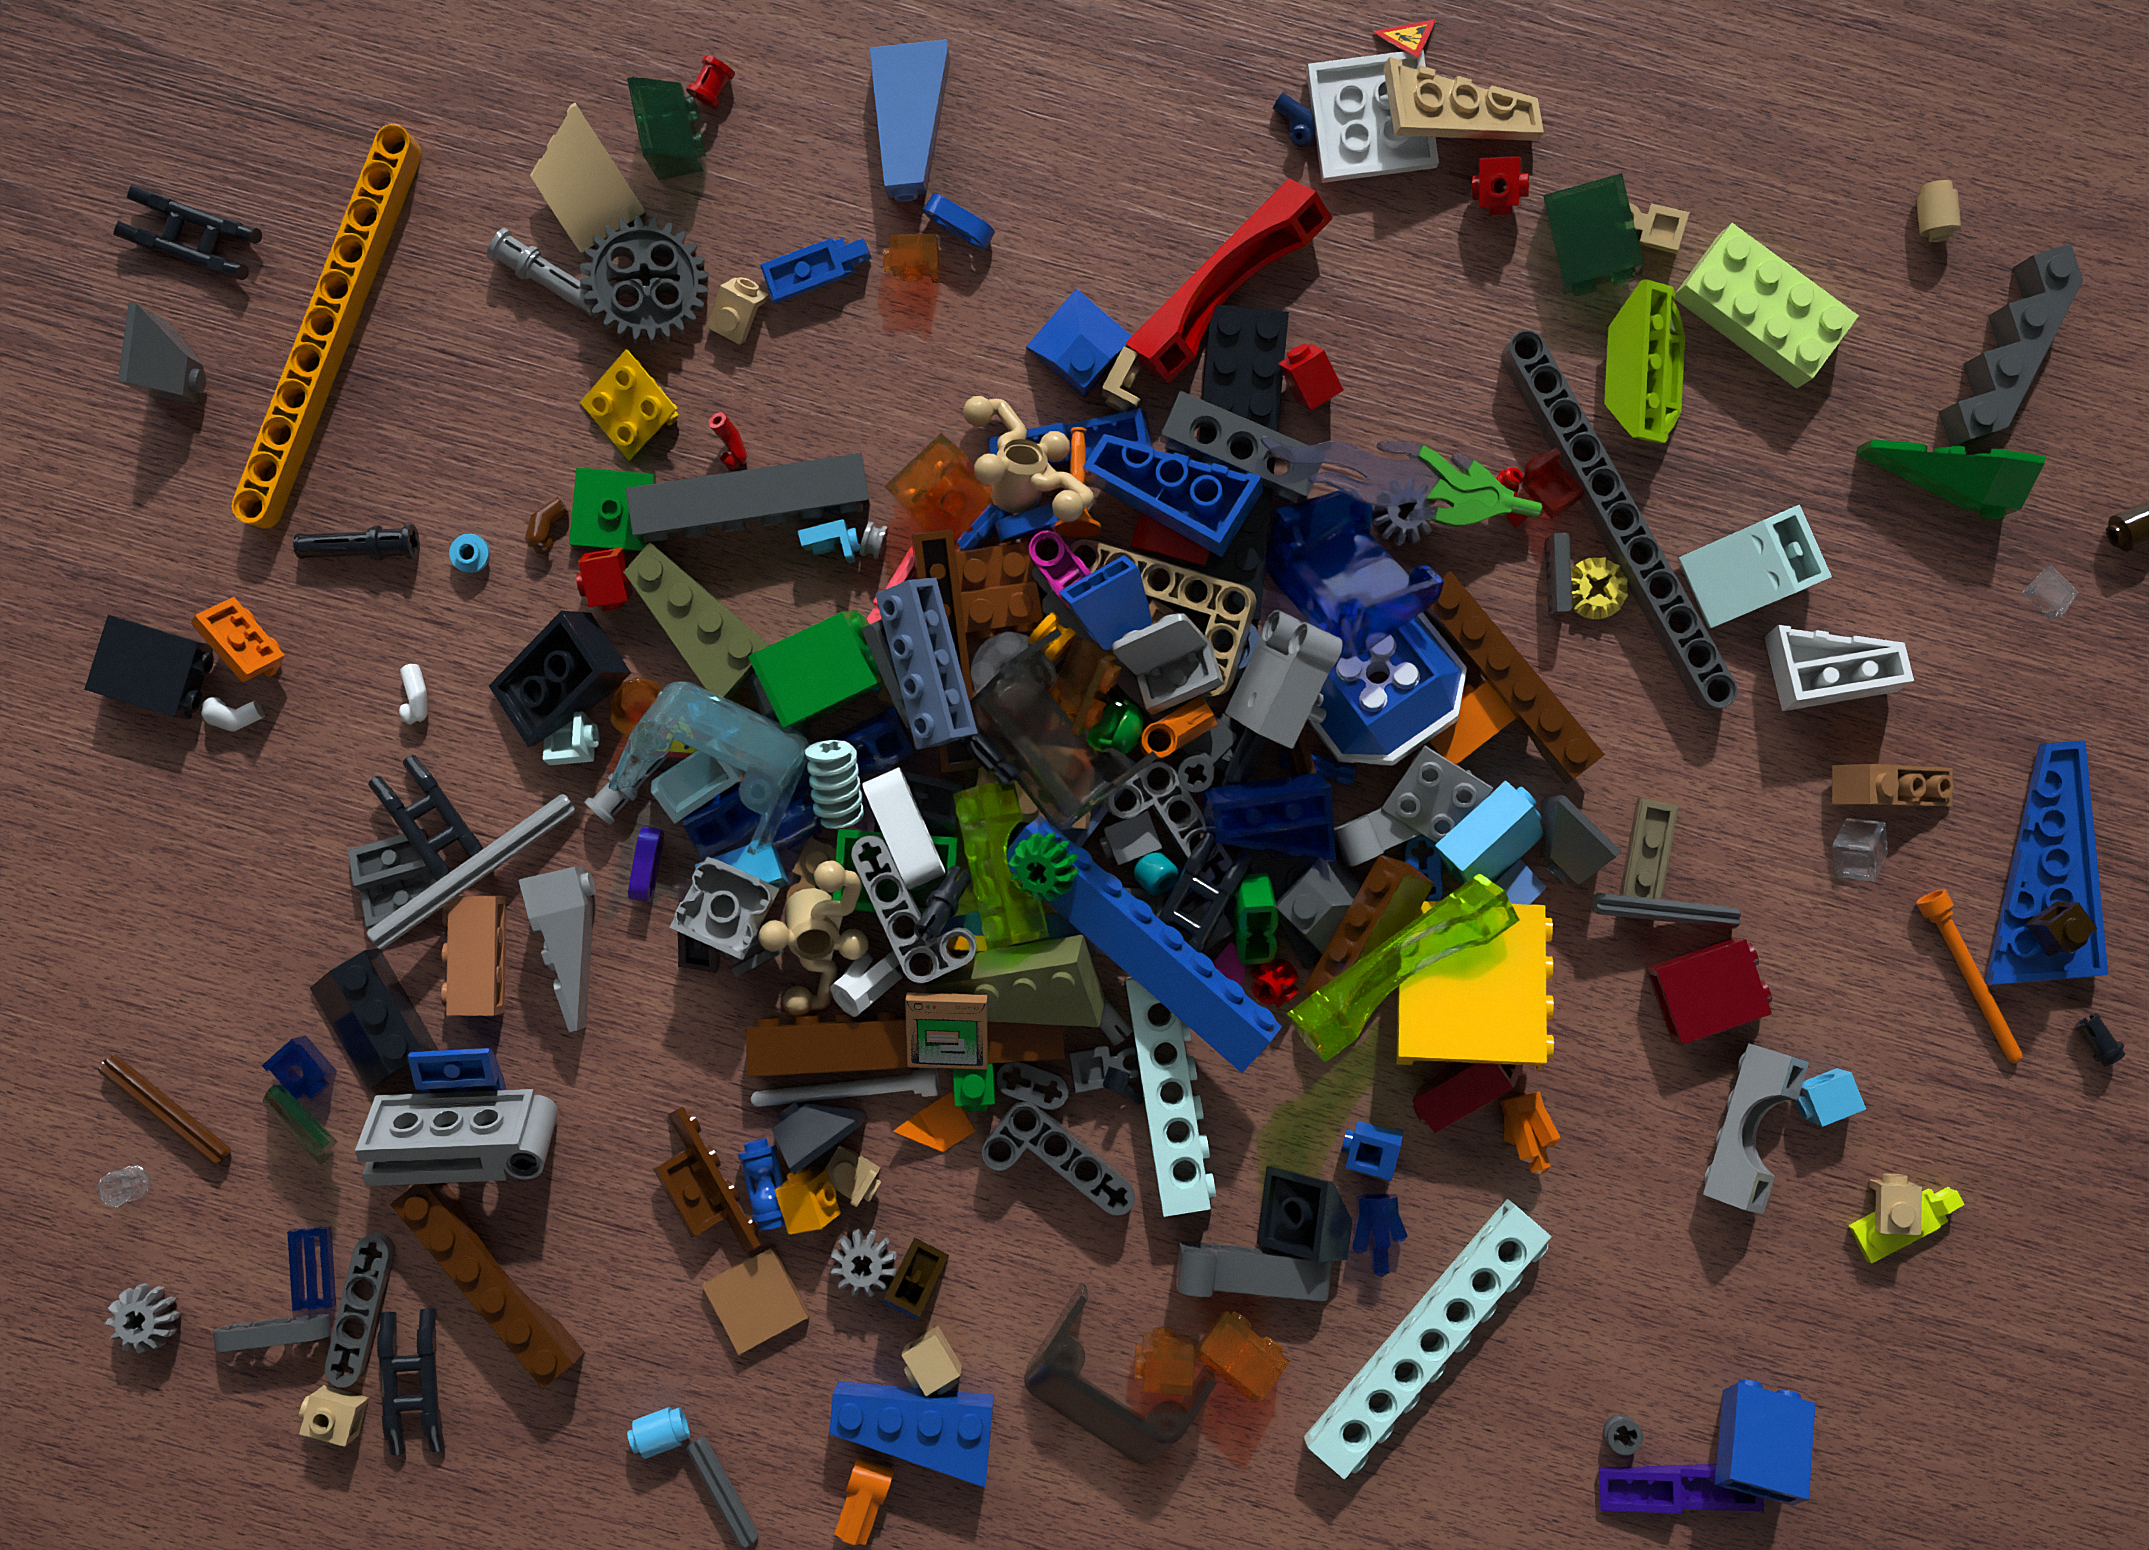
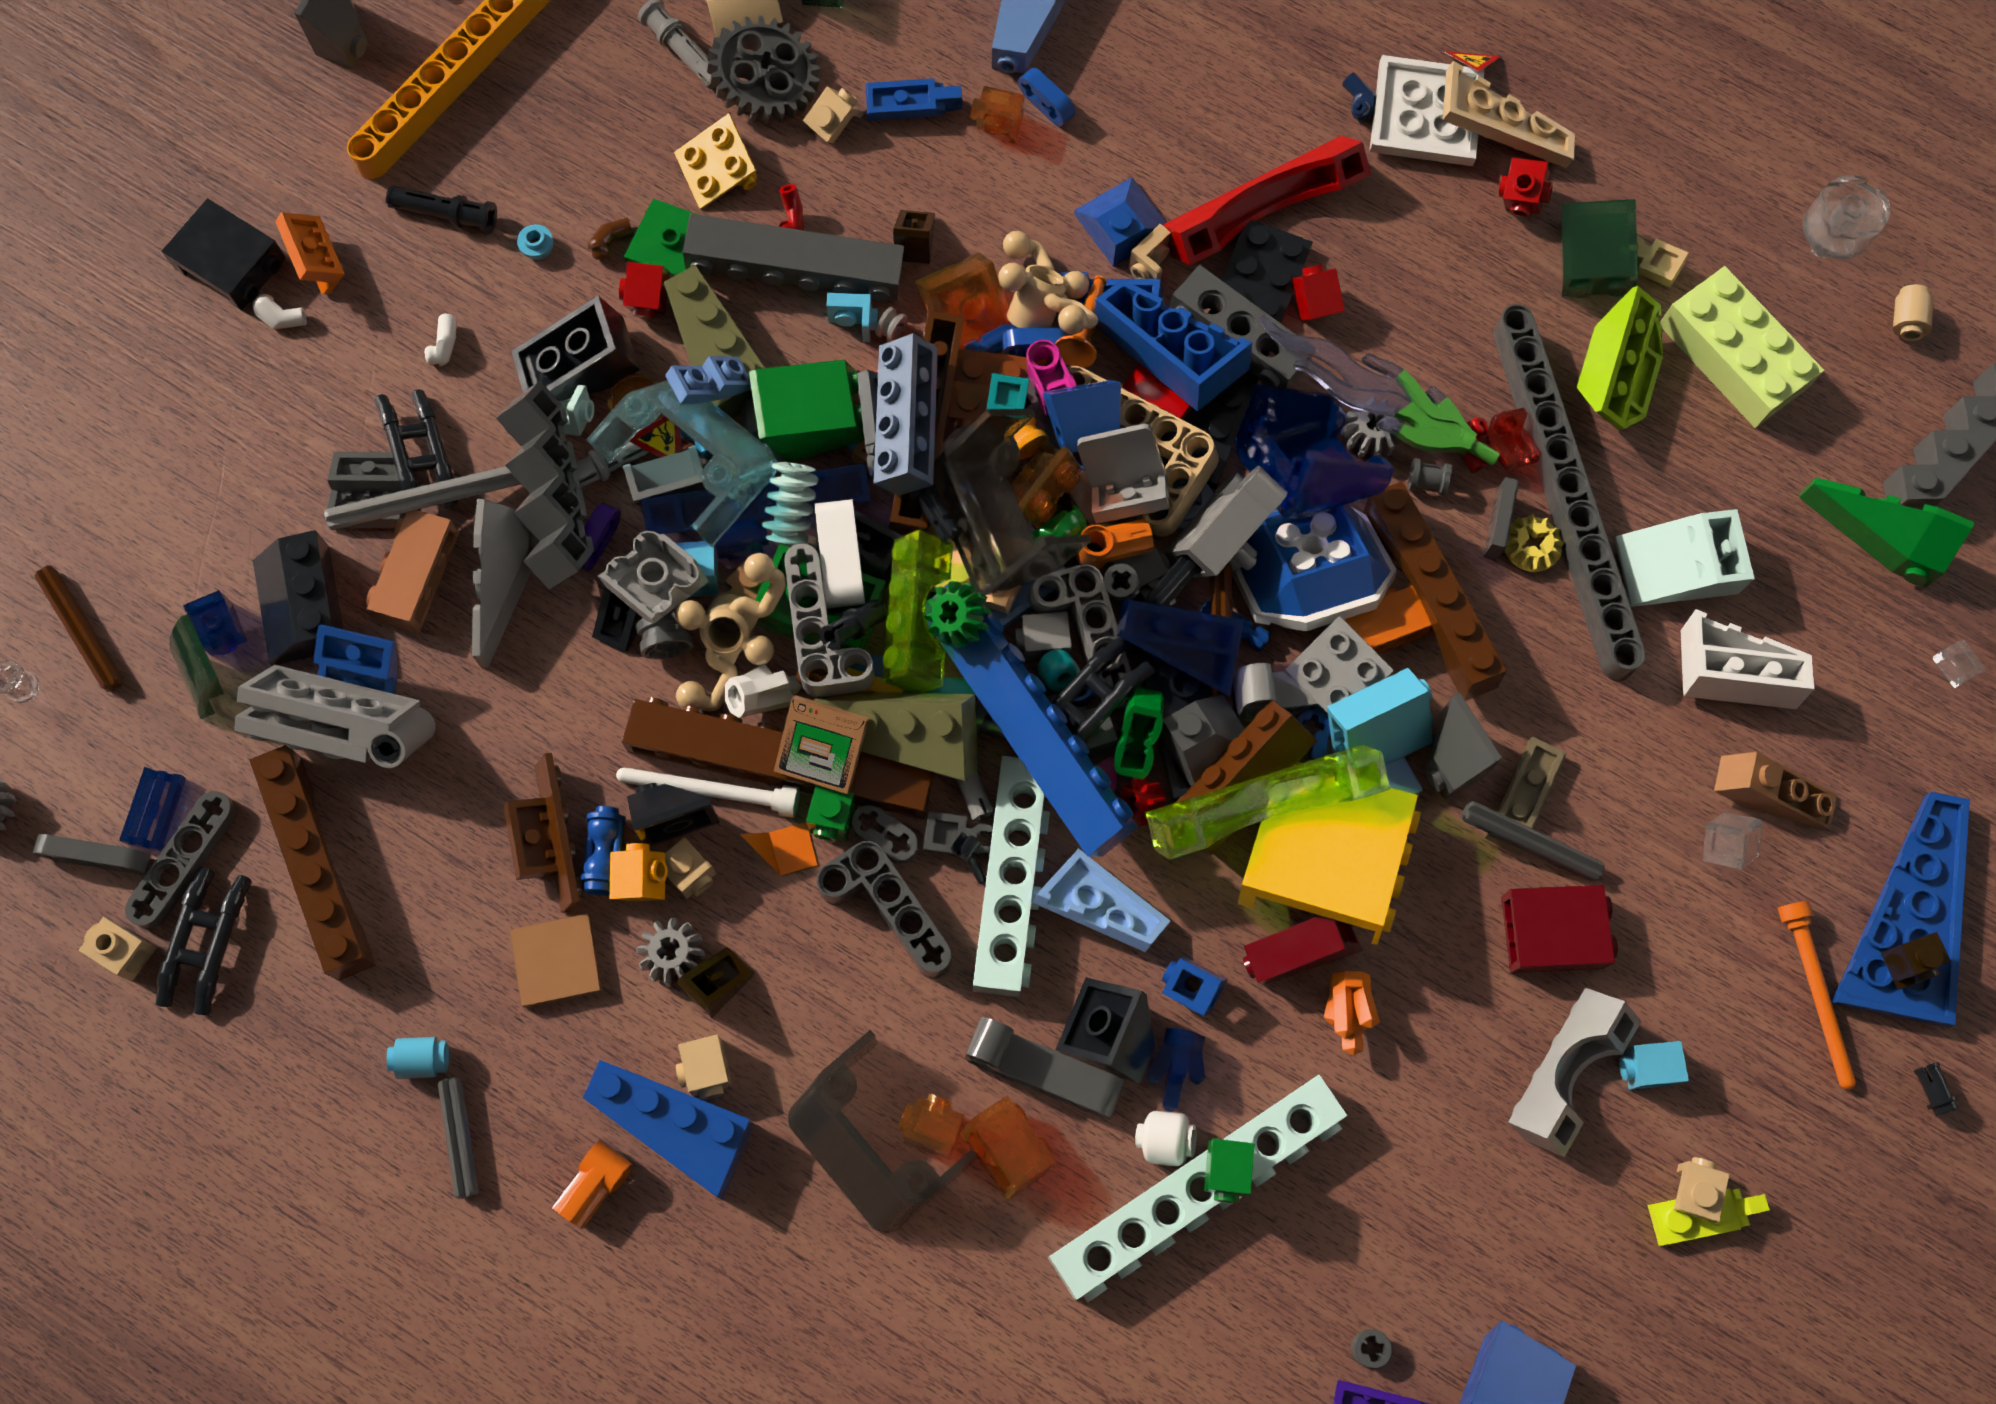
camera: 15 degrees right, 15 degrees down
(574, 817) = (546, 470): none -> dark grey brick
(711, 679) = (714, 380): none -> medium blue slope
(865, 425) = (915, 233): none -> dark brown slope
(1022, 601) = (1007, 392): none -> teal plate
(1264, 1097) = (1101, 902): none -> light blue wing
(1385, 1302) = (1166, 1138): none -> white head
(1455, 1329) = (1229, 1169): none -> green brick
(1474, 548) = (1429, 477): none -> dark grey bush
(1848, 120) = (1845, 218): none -> clear brick

